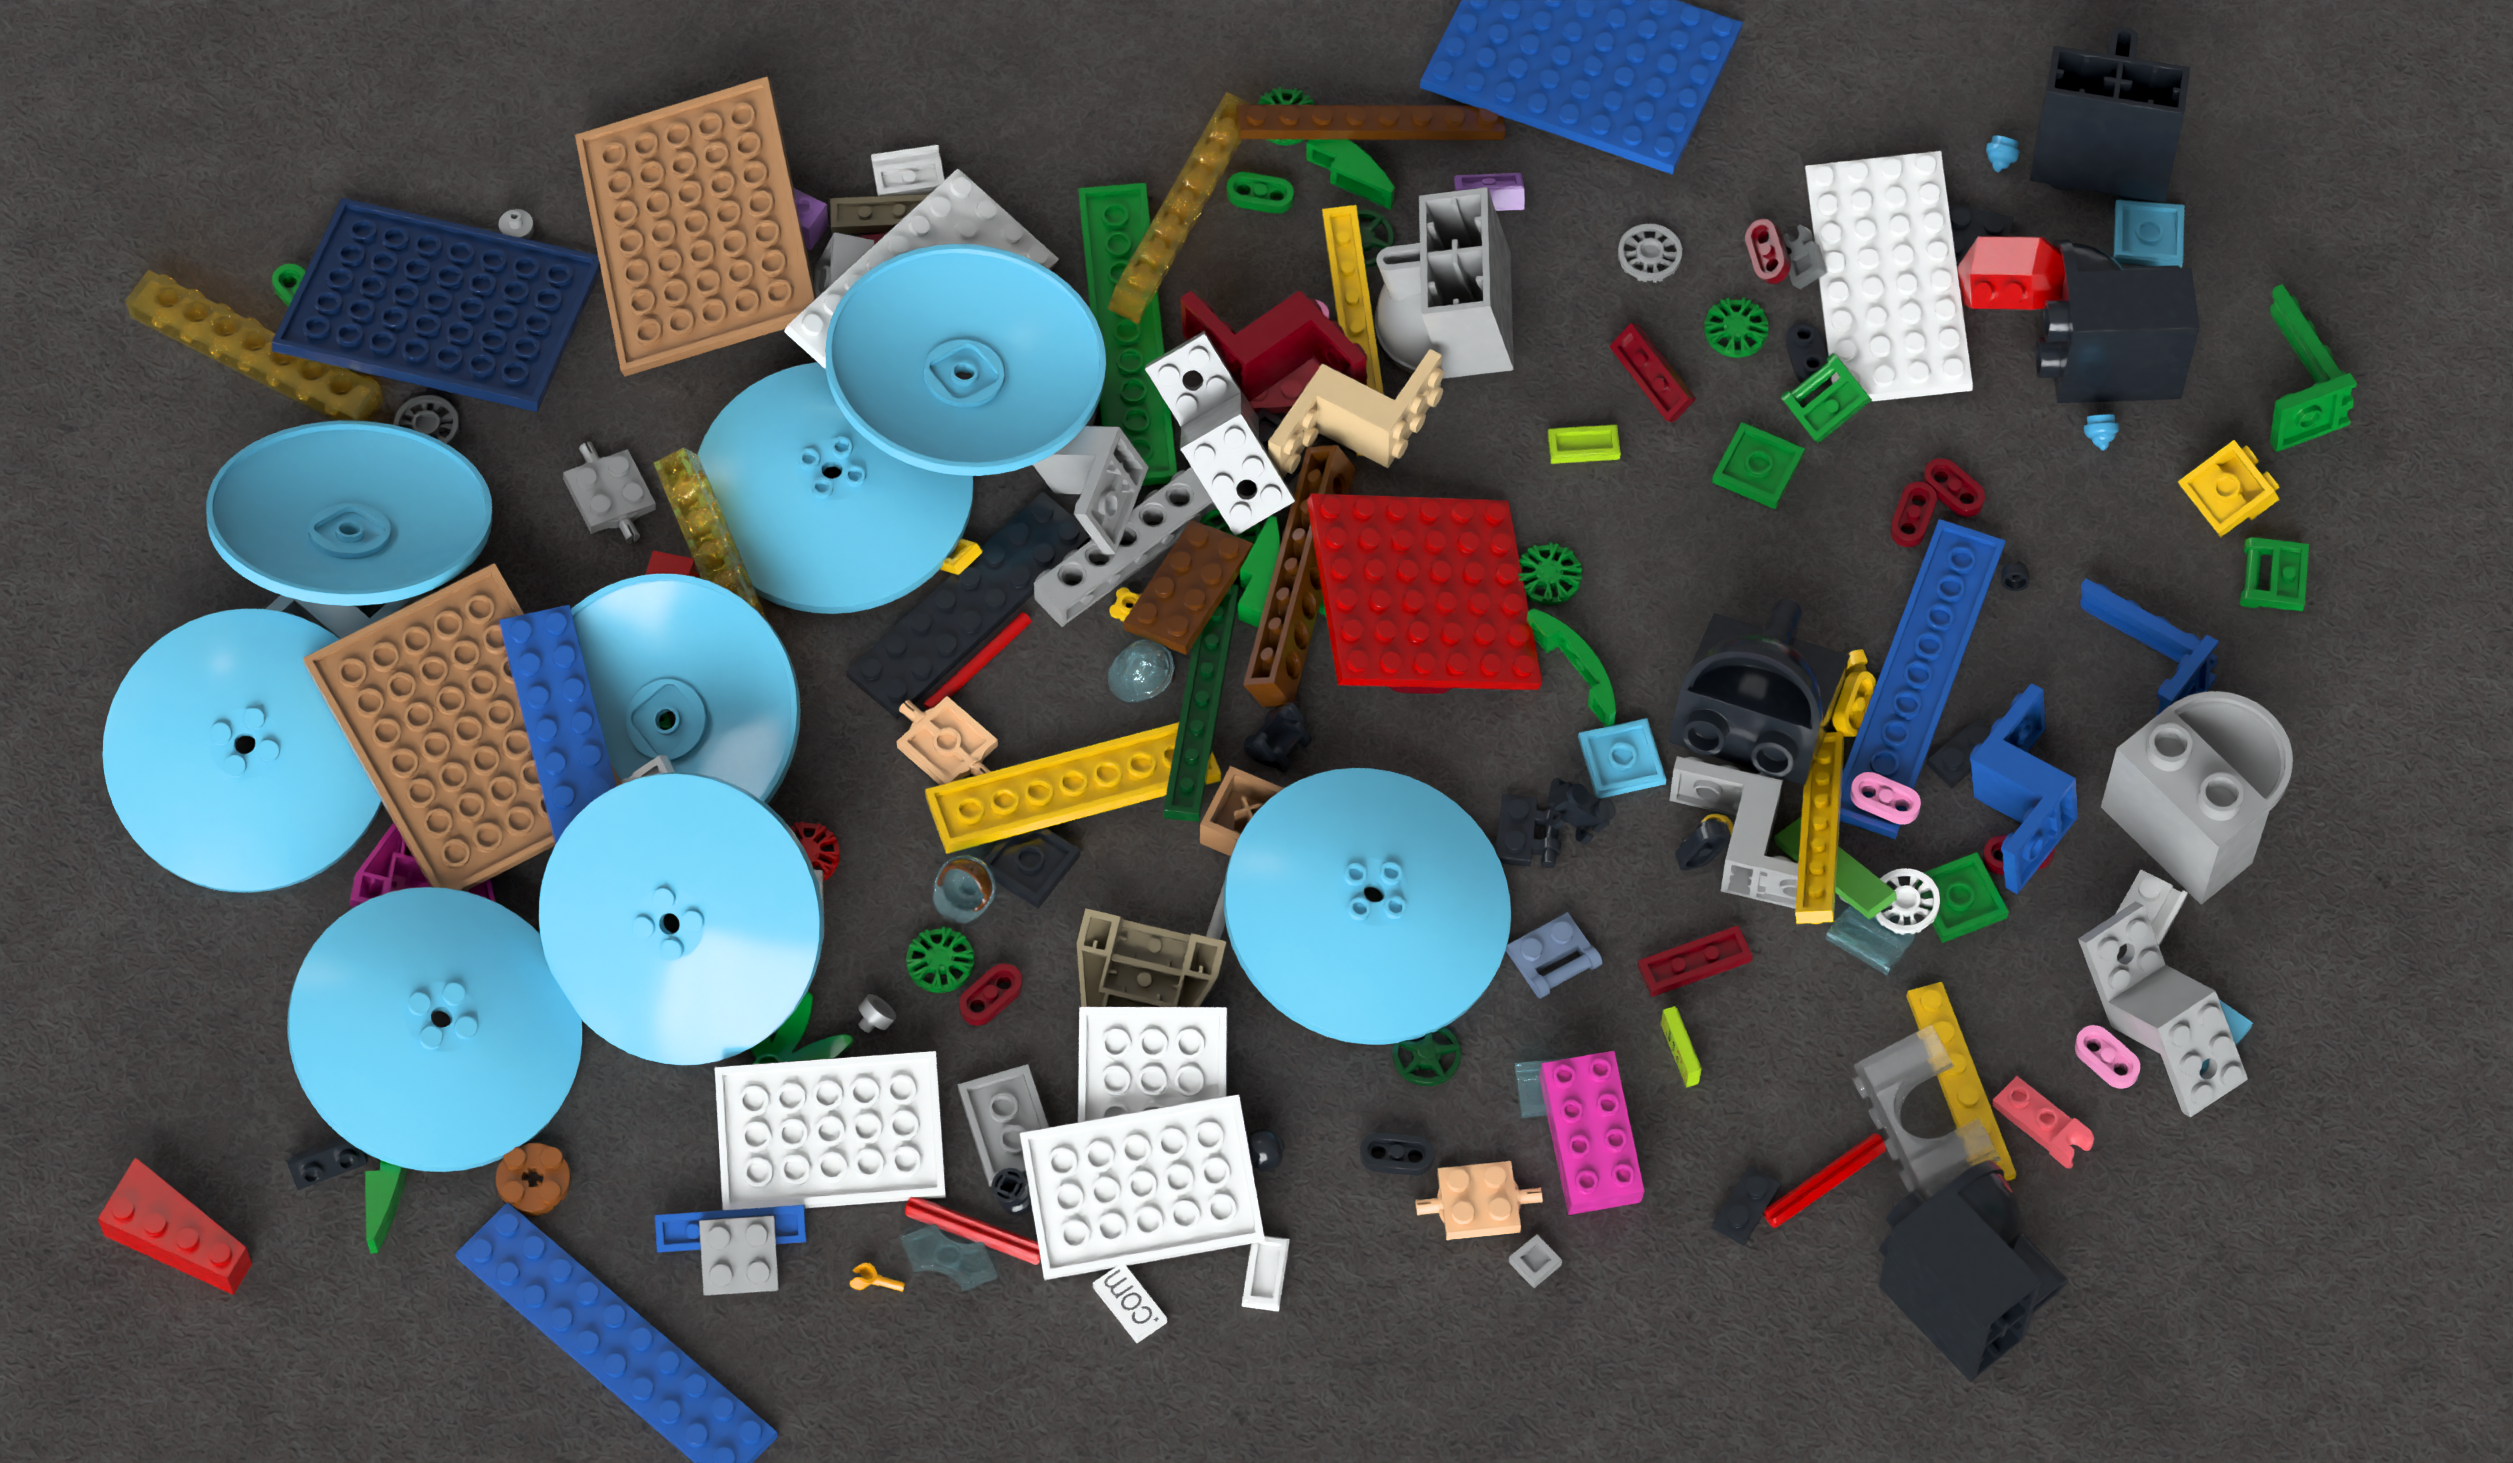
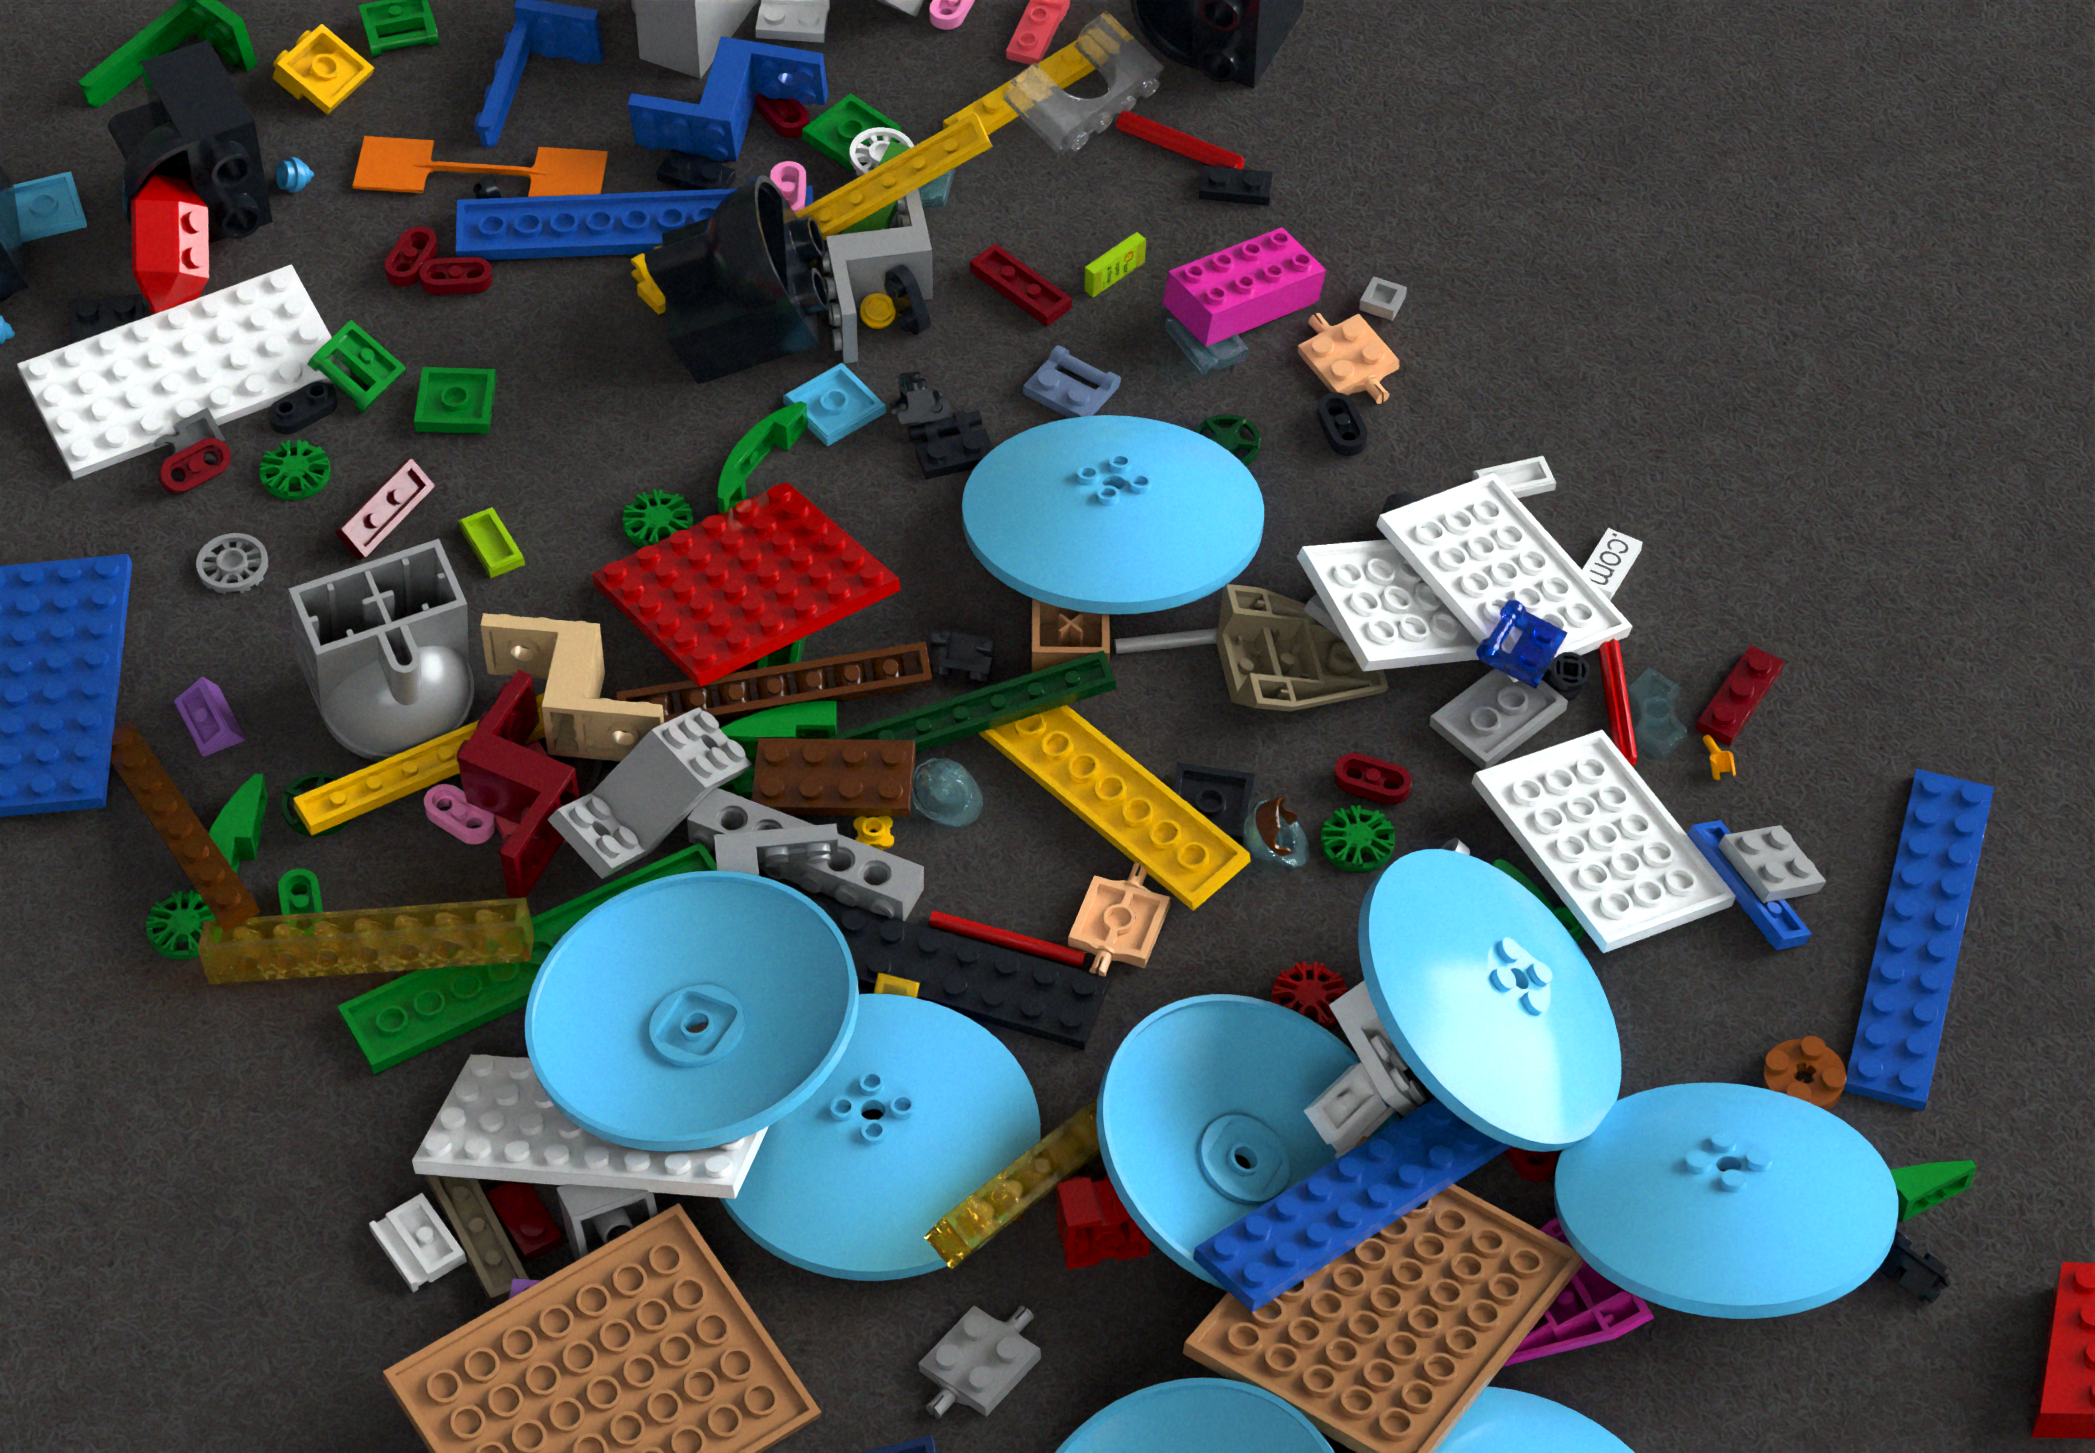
camera: 115 degrees left, 10 degrees down
(932, 1336) = (1740, 695): none -> dark red plate
(1035, 1154) = (1532, 651): none -> clear blue plate
(2012, 644) = (405, 164): none -> orange hinge

